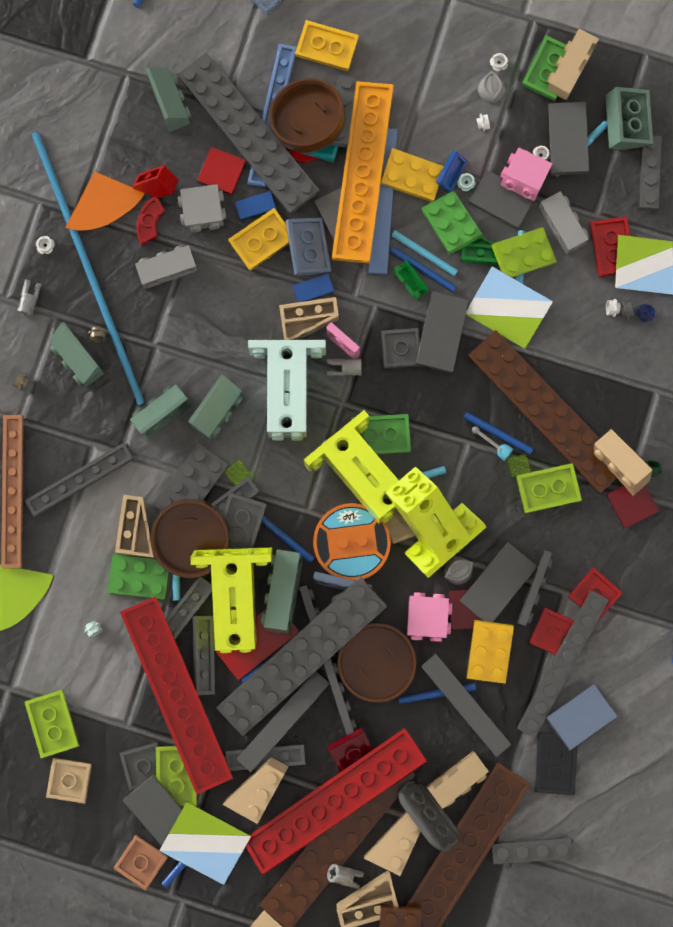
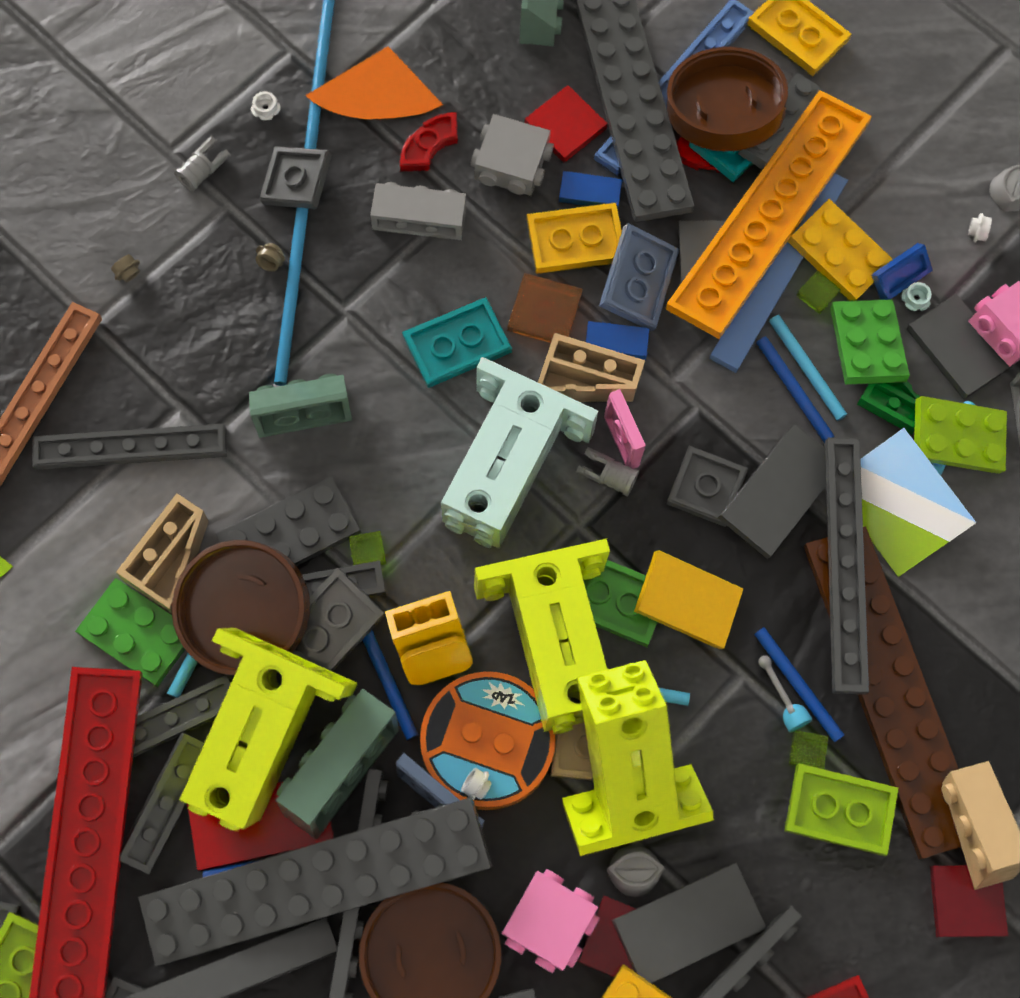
camera: 20 degrees right, 10 degrees down
(74, 356) = (220, 268): sand green slope -> none
(86, 280) = (295, 177): none -> dark grey tile
(93, 629) = (22, 676): light aqua plate -> none
(156, 182) = (466, 93): red slope -> none
(216, 408) = (384, 436): sand green slope -> none
(226, 333) = (456, 342): none -> teal tile
(264, 290) = (544, 308): none -> clear orange tile
(297, 506) = (429, 639): none -> yellow brick
(358, 568) = (476, 784): none -> white plate
(410, 205) = (818, 292): none -> clear neon green tile
(411, 279) = (769, 394): green hinge -> none
(420, 417) = (688, 599): none -> yellow tile
(494, 357) = (846, 567): none -> dark grey plate

